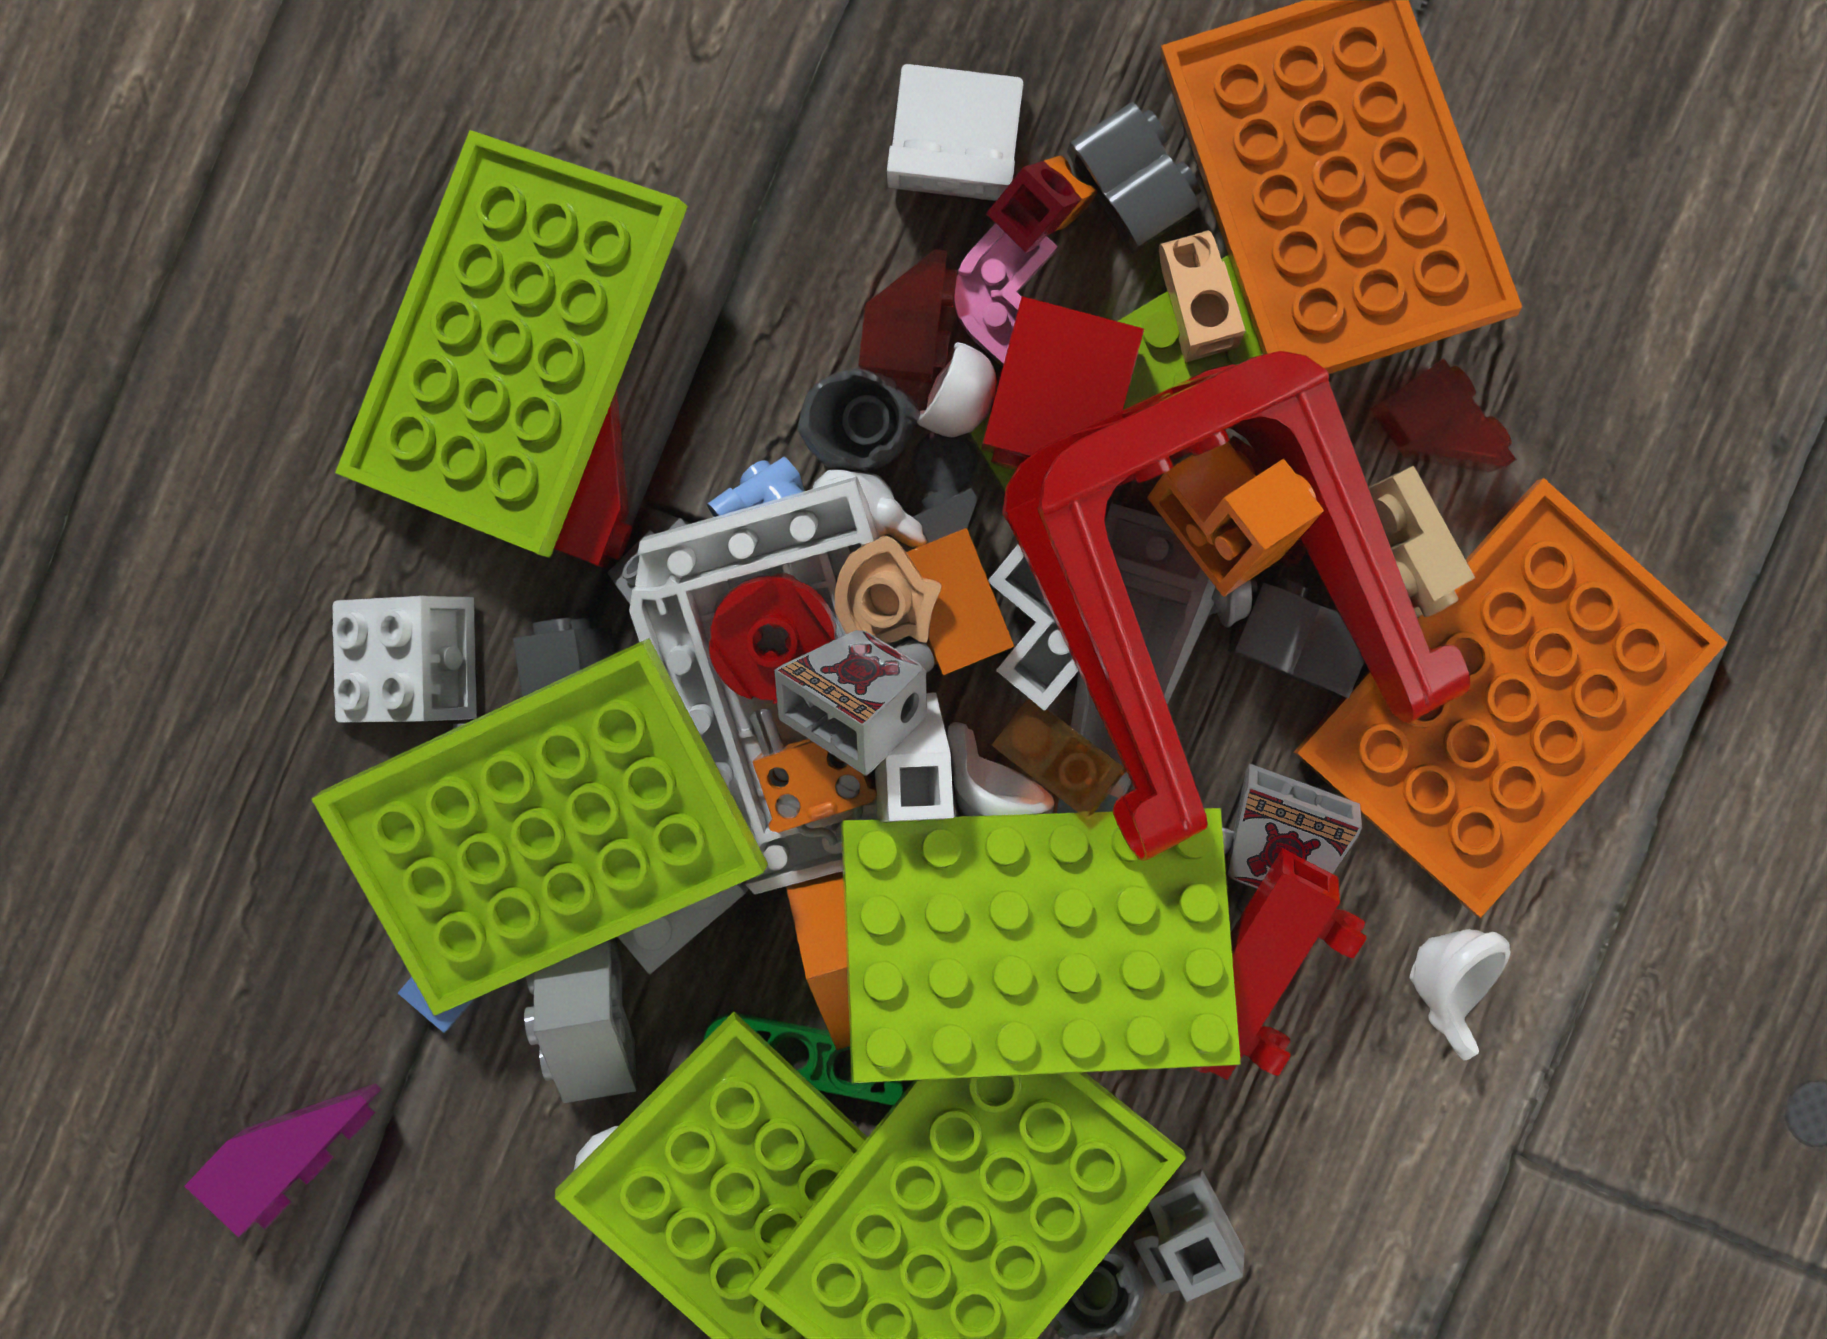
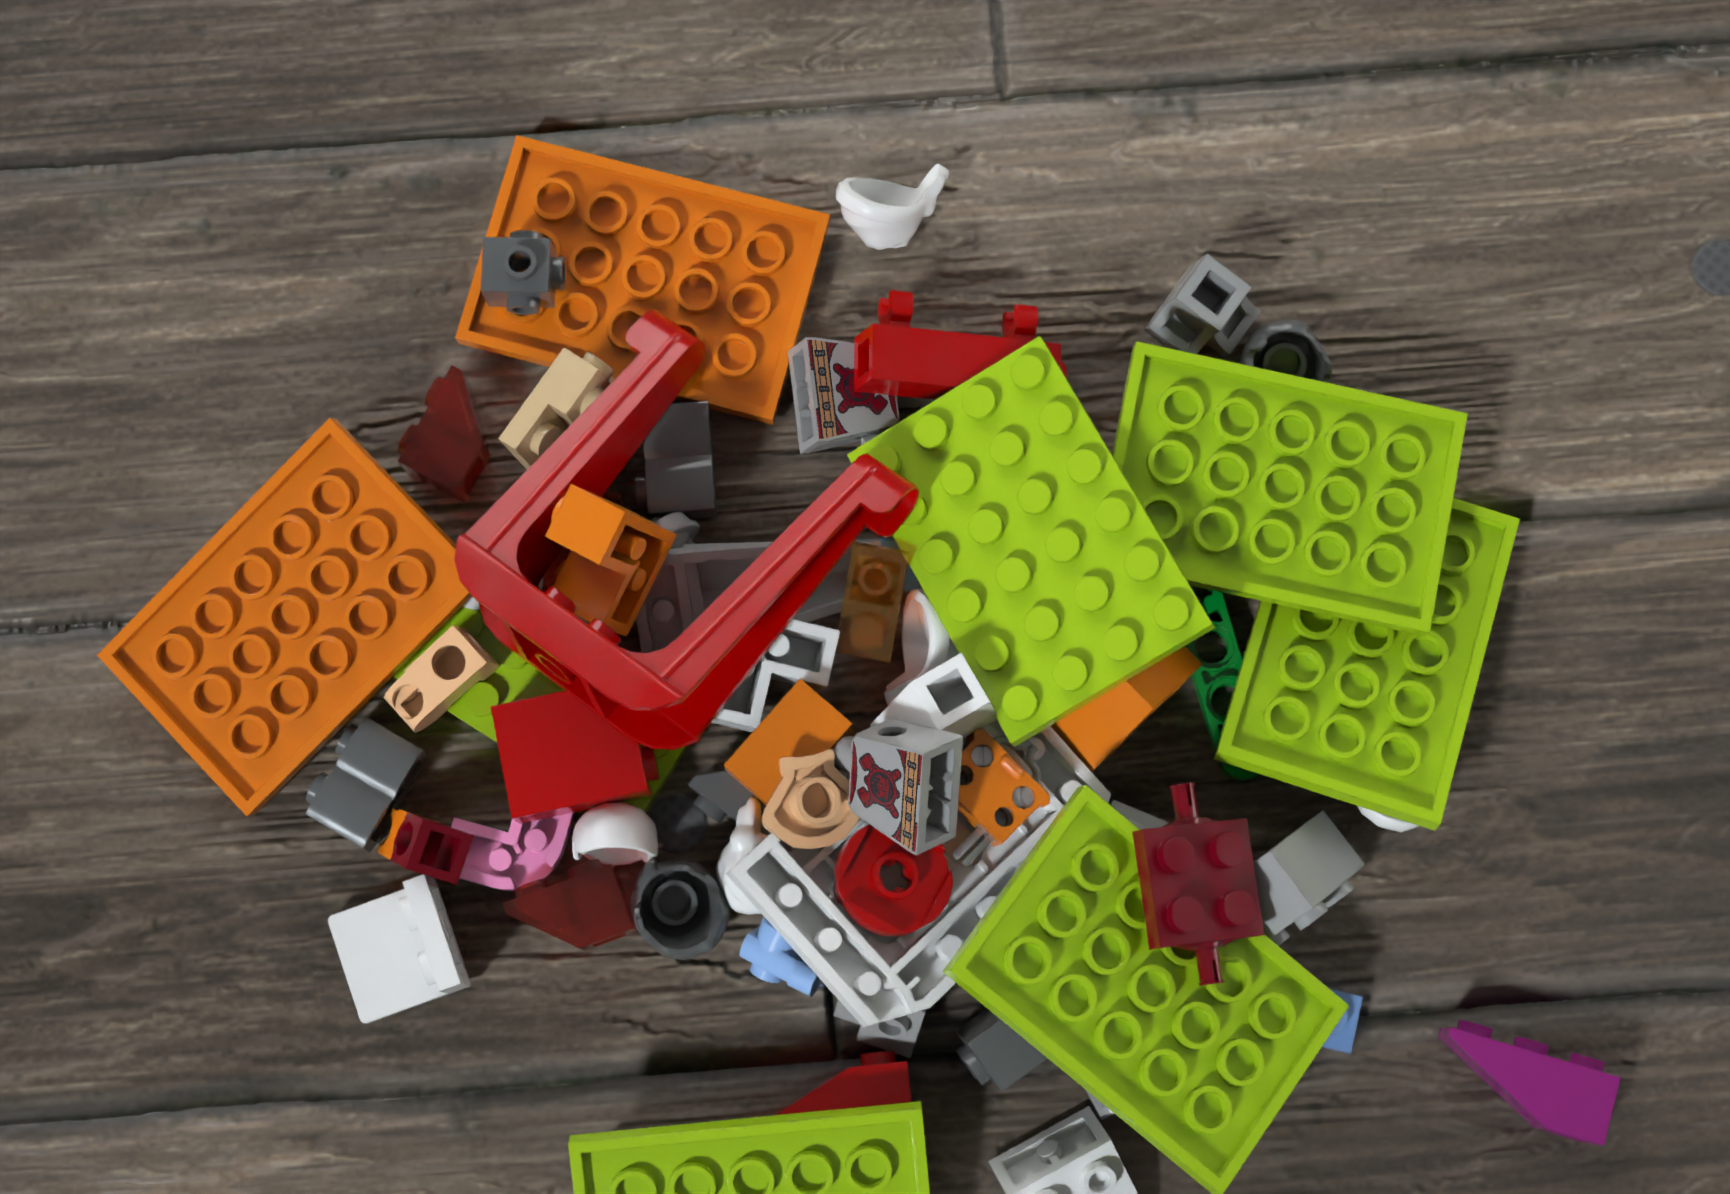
camera: 115 degrees left, 10 degrees down
(613, 932) = (1197, 883): none -> dark red plate
(1577, 575) = (521, 272): none -> dark grey brick

